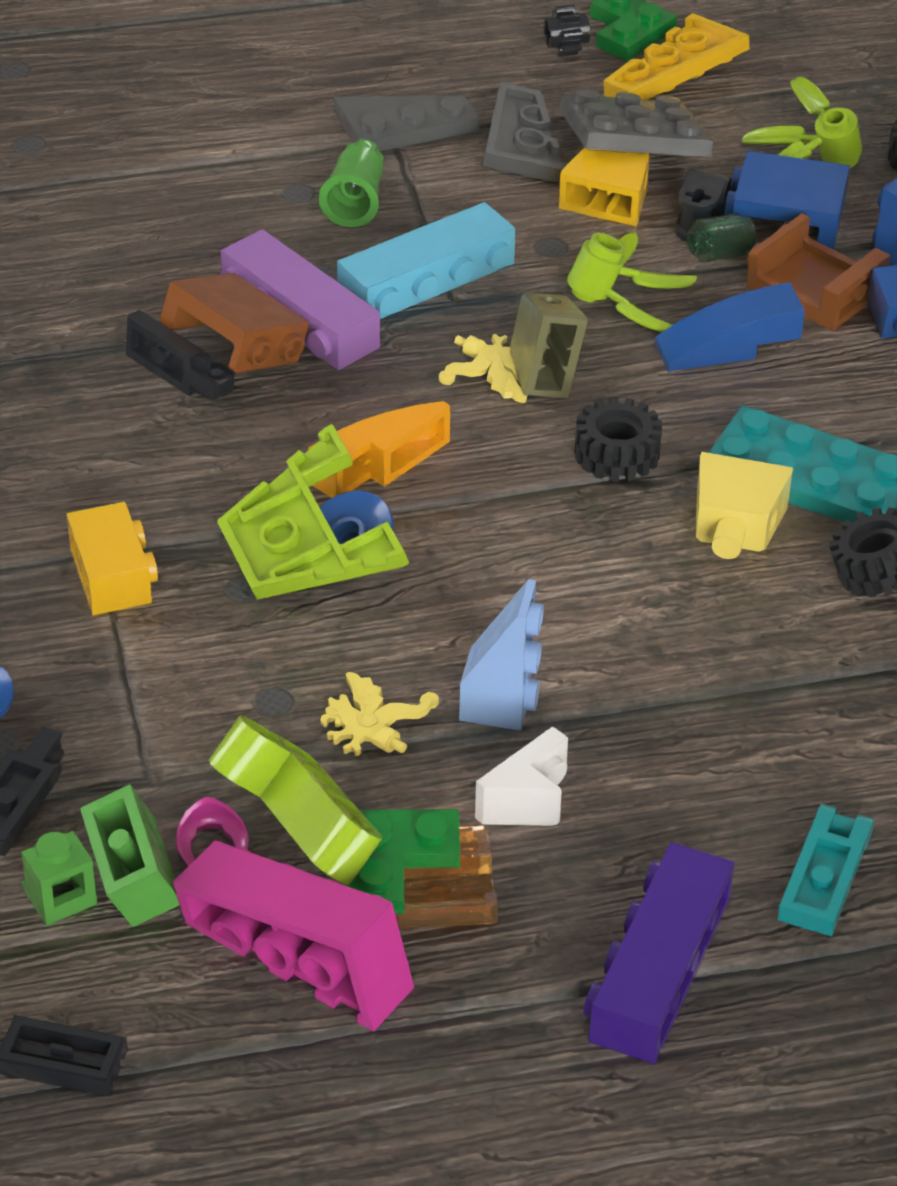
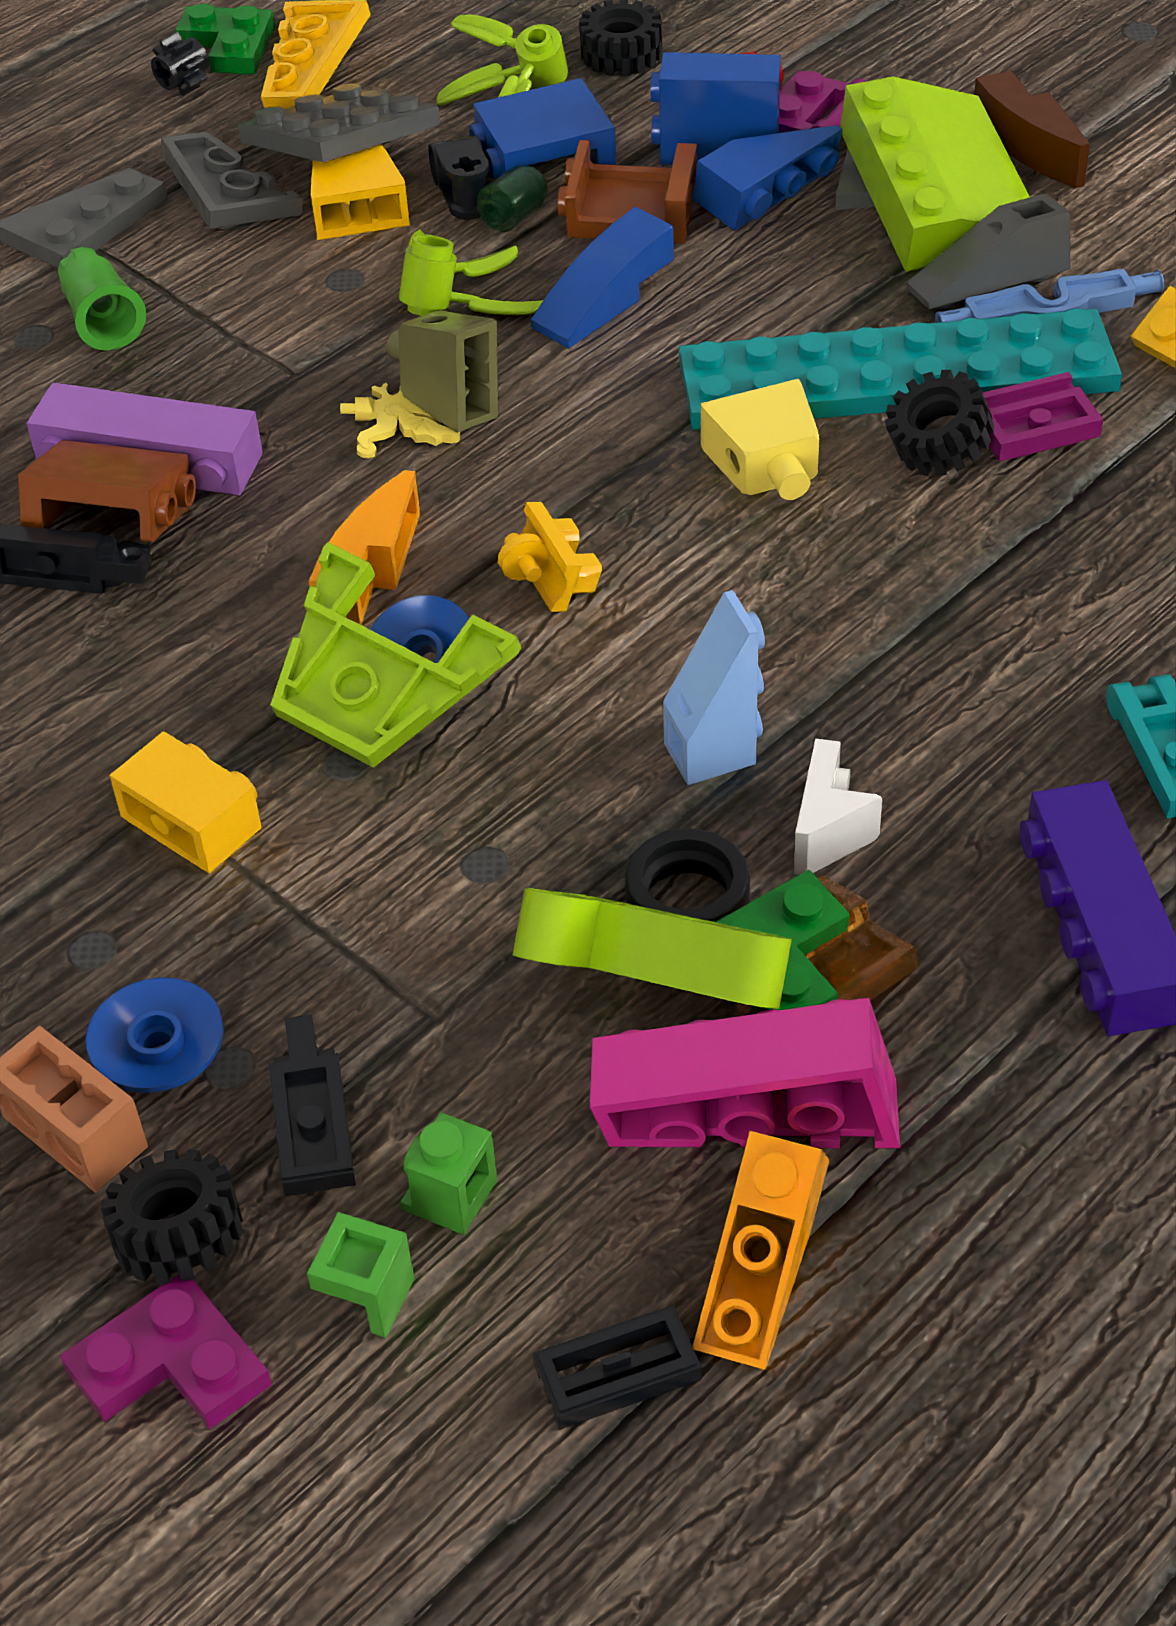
camera: 30 degrees left, 5 degrees up
(130, 855) = (514, 1104): bright green brick -> none
(209, 814) = (550, 1012): dark pink piece -> none
(213, 1032) = (760, 1249): none -> light orange slope
(374, 719) = (591, 832): light yellow piece -> none
(385, 756) = (689, 852): none -> black tyre
(430, 259) = (249, 337): medium azure brick -> none
(501, 511) = (548, 558): none -> yellow hips
(625, 457) = (612, 446): black tyre -> none

